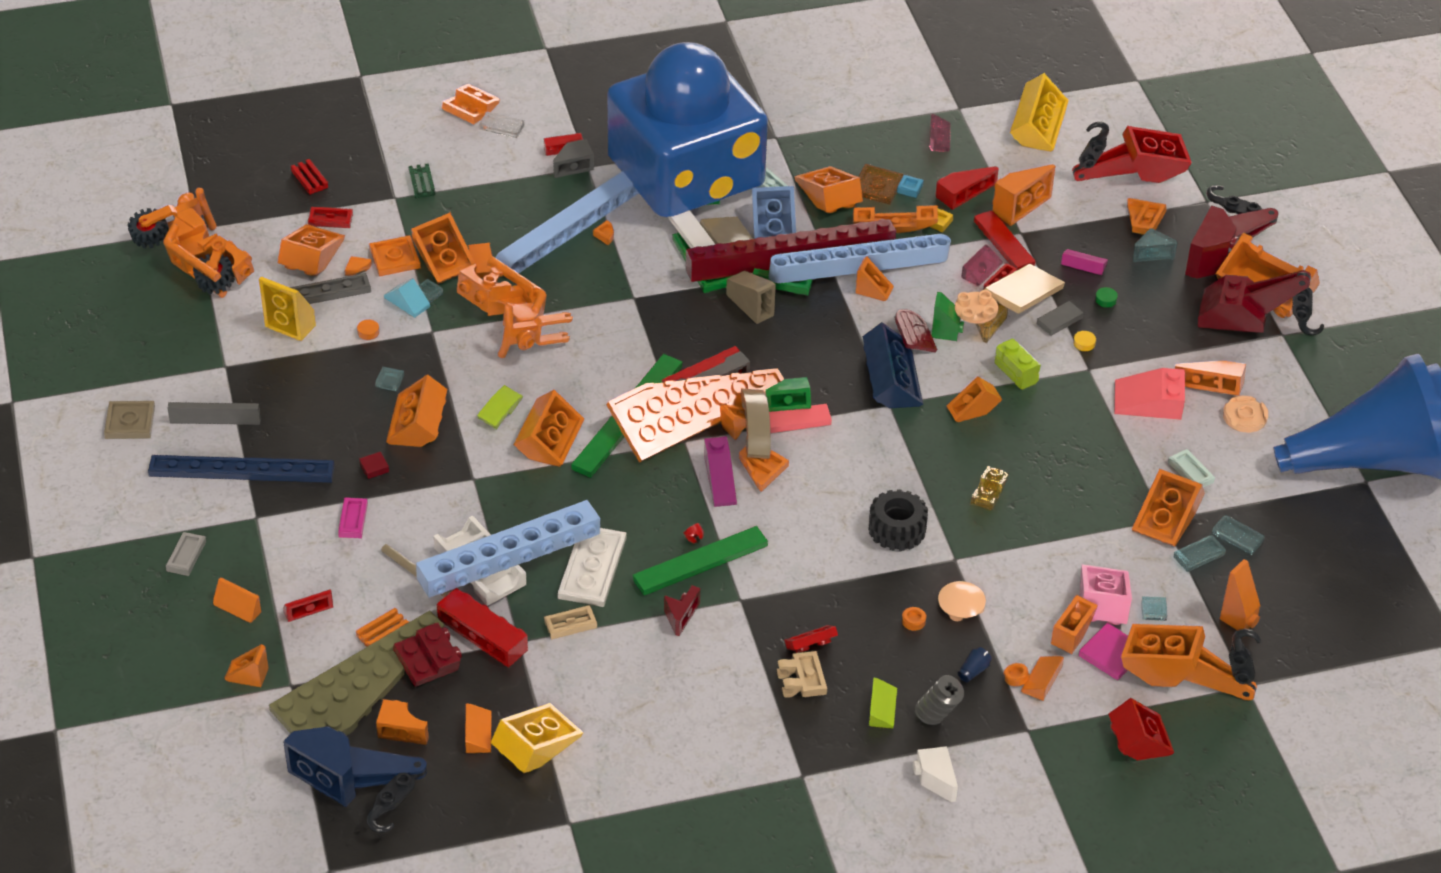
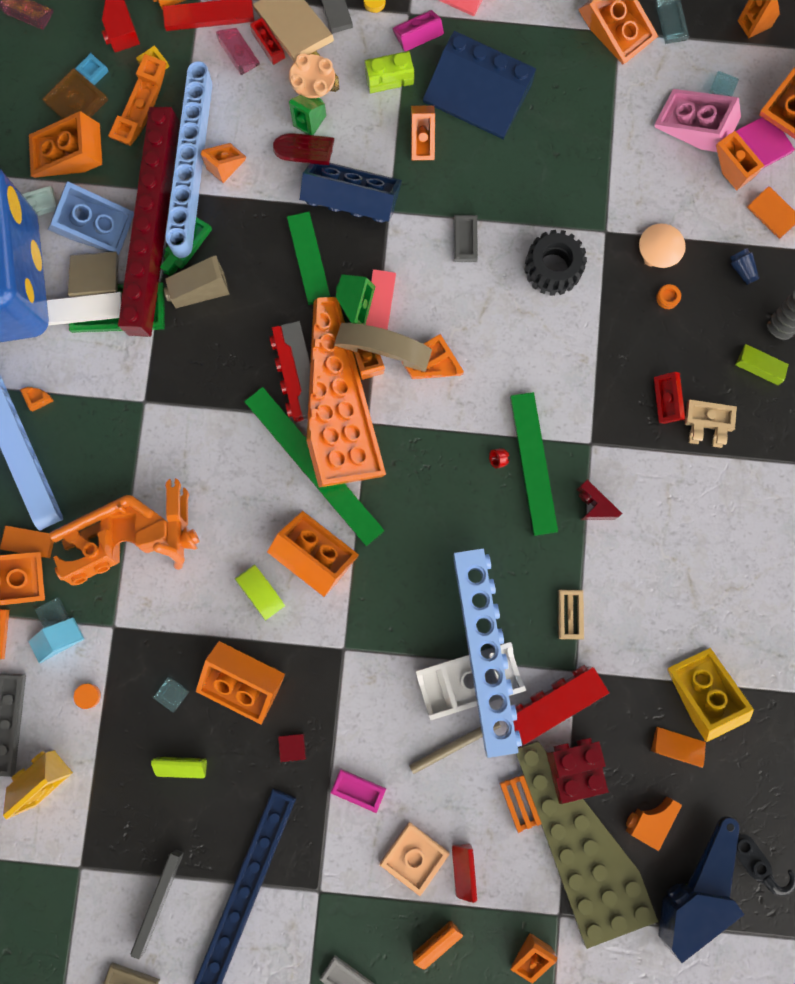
camera: 70 degrees left, 35 degrees up
(307, 570) = (414, 858): none -> light nougat tile
(330, 398) = (179, 767): none -> lime slope
(592, 568) = (514, 573): white tile -> none
(720, 471) = (430, 404): magenta slope -> none
(819, 359) = (308, 256): none -> green tile
(891, 460) = (465, 238): none -> dark grey tile
(989, 488) = (530, 162): clear yellow slope -> none
(1016, 674) = (764, 234): orange tile -> none
(1042, 429) = (479, 85): none -> dark blue slope
(1074, 378) = (419, 30): none -> dark pink slope

